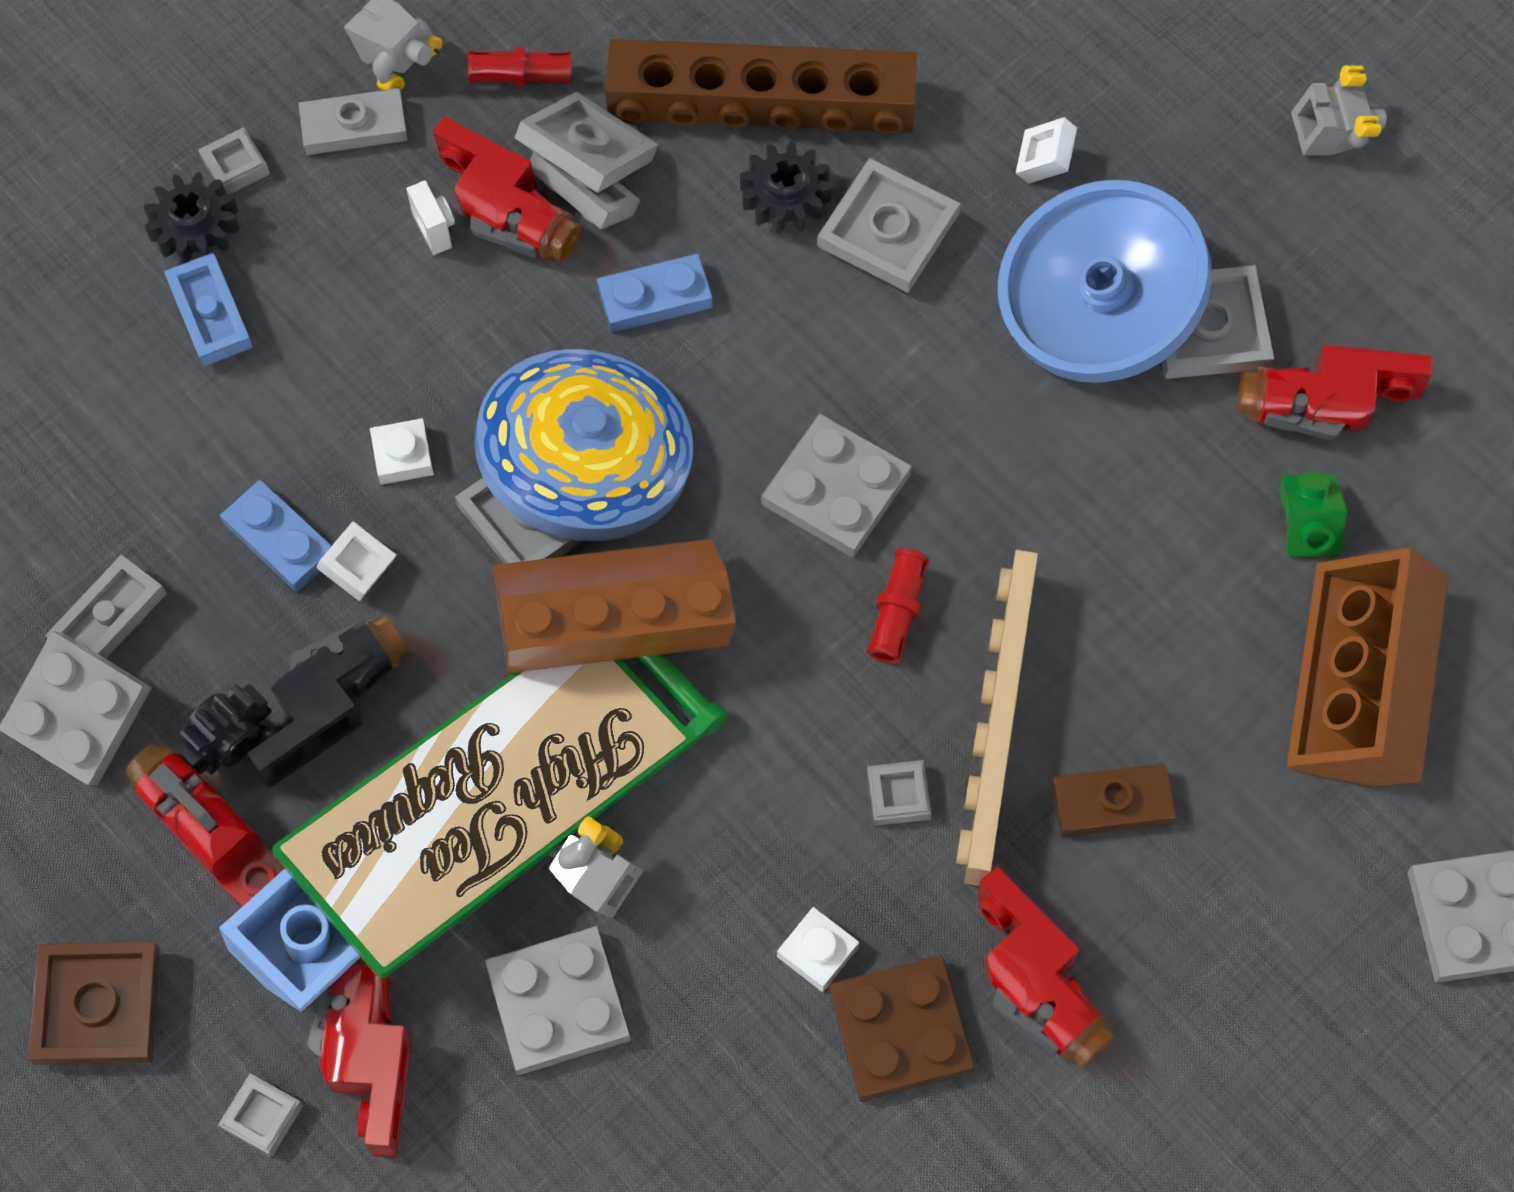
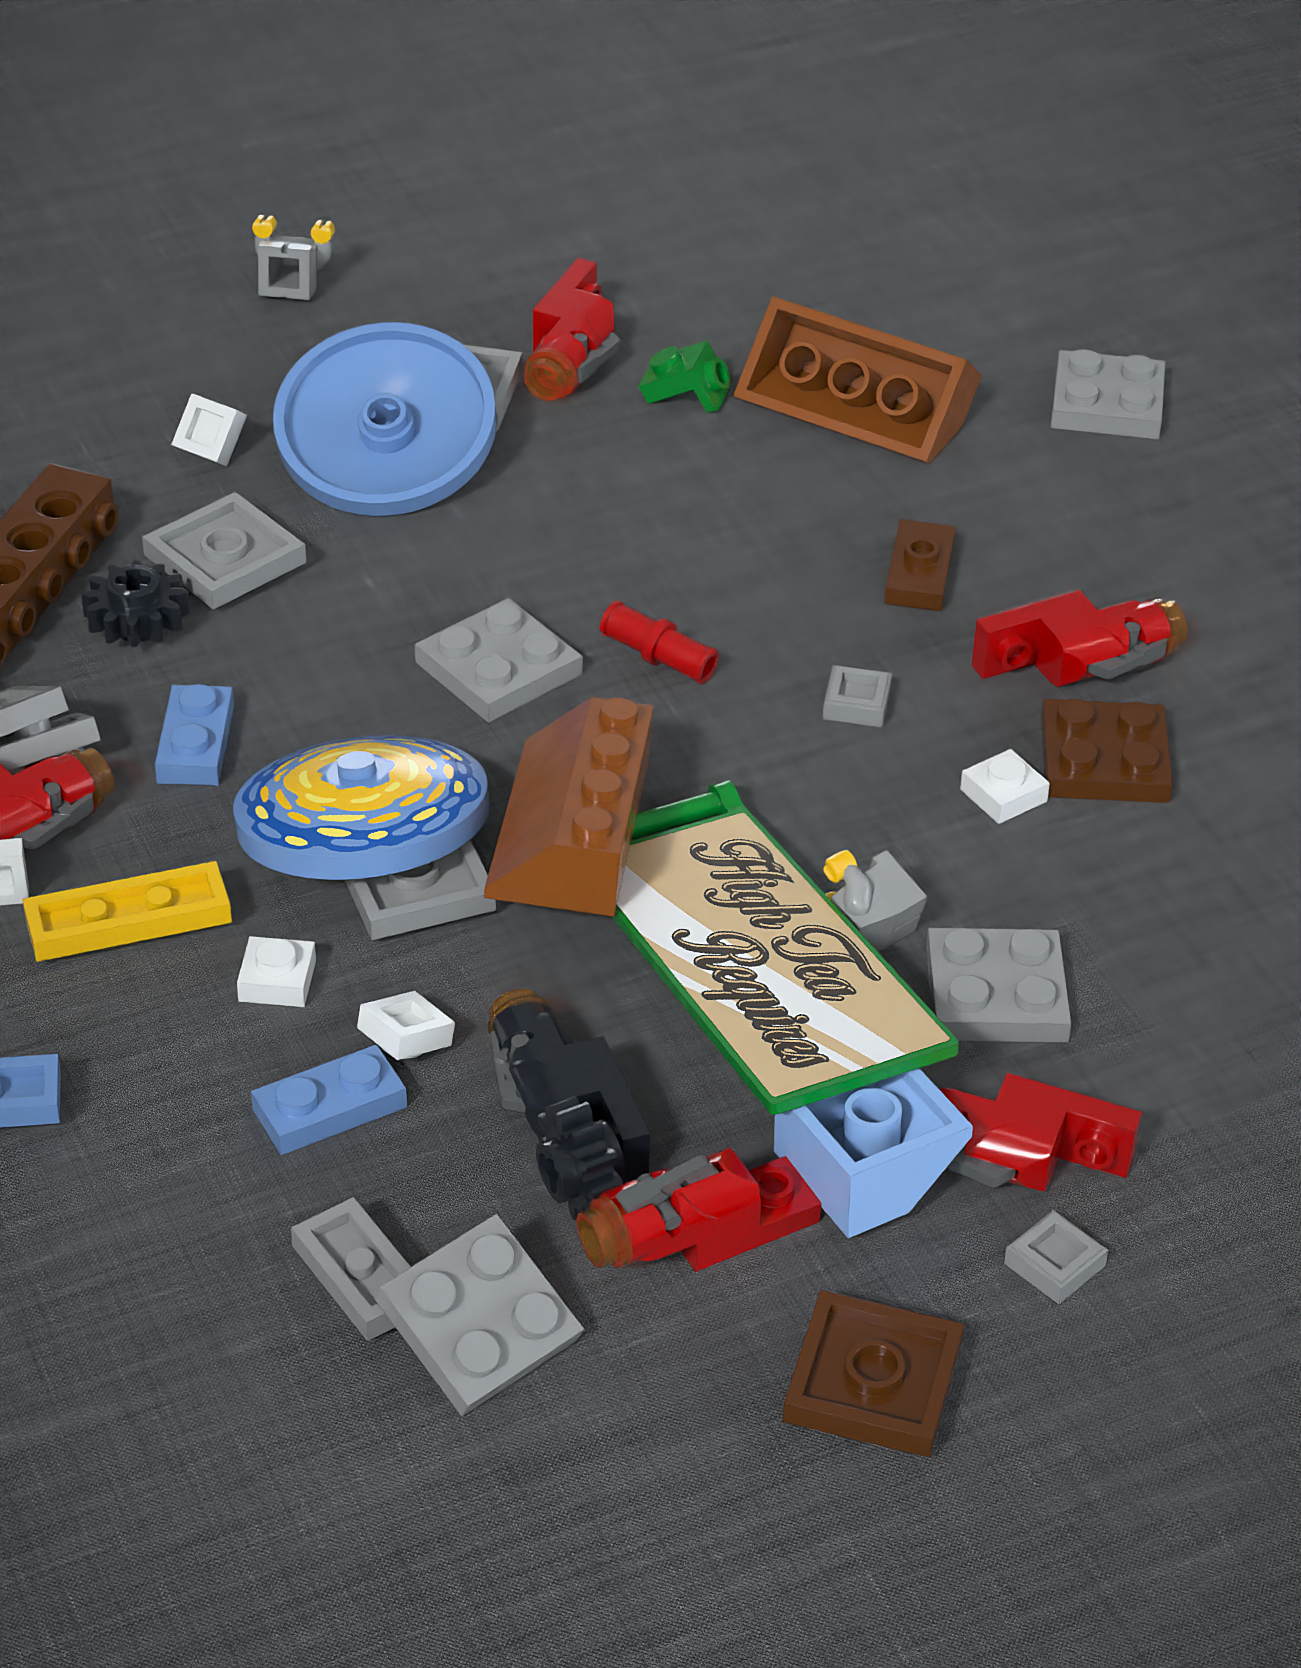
camera: 75 degrees left, 25 degrees down
(424, 324) = (126, 911): none -> yellow plate
(993, 739) = (814, 601): tan plate -> none

